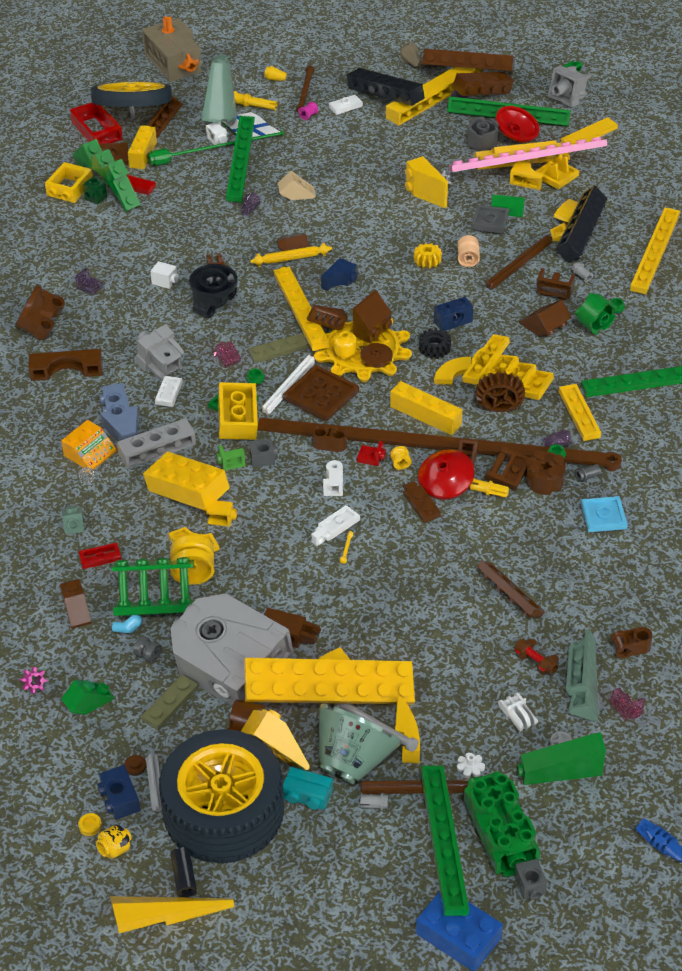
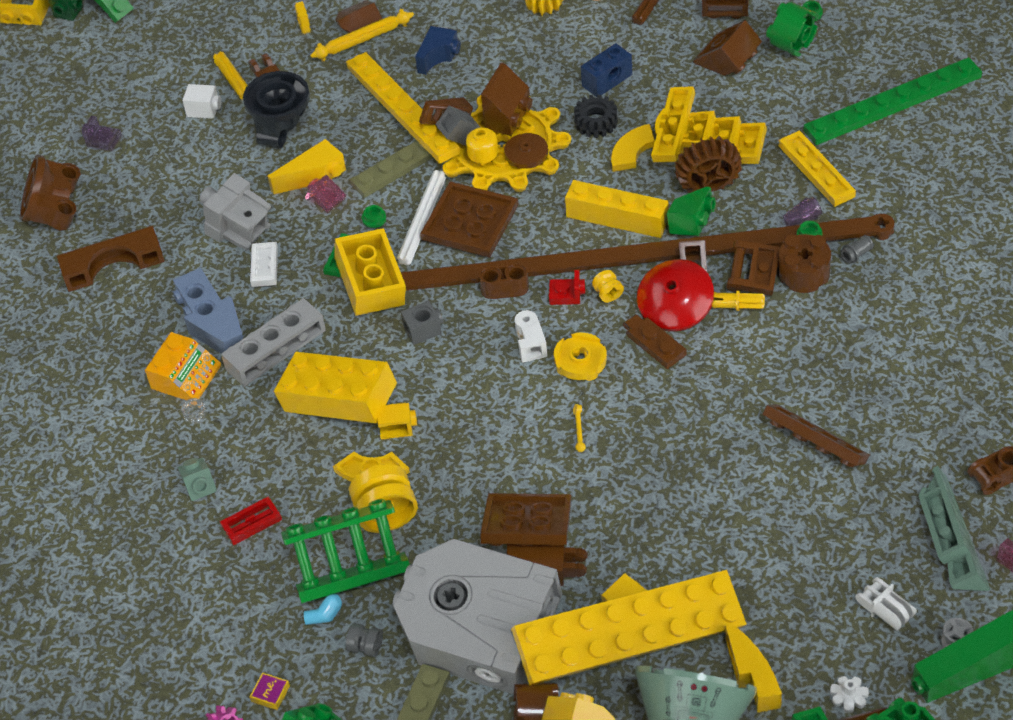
camera: 10 degrees left, 5 degrees up
(73, 667) = (269, 691): none -> tile
(75, 603) = (242, 598): slope -> none
(190, 258) = (230, 73): none -> yellow axle
(210, 337) = (314, 163): none -> yellow slope
(230, 459) = (382, 341): bright green bracket -> none
(253, 234) = (302, 17): none -> yellow tile
(285, 596) = (526, 519): none -> reddish brown plate
(331, 325) = (456, 124): none -> dark grey brick
(334, 525) = (553, 401): white hinge -> none
(365, 508) = (580, 369): none -> yellow plate
(410, 743) = (768, 687): light grey bar -> none
(477, 421) = (691, 212): none -> green slope
(546, 665) = (898, 528): reddish brown piece -> none
(604, 514) = (898, 301): medium azure plate -> none

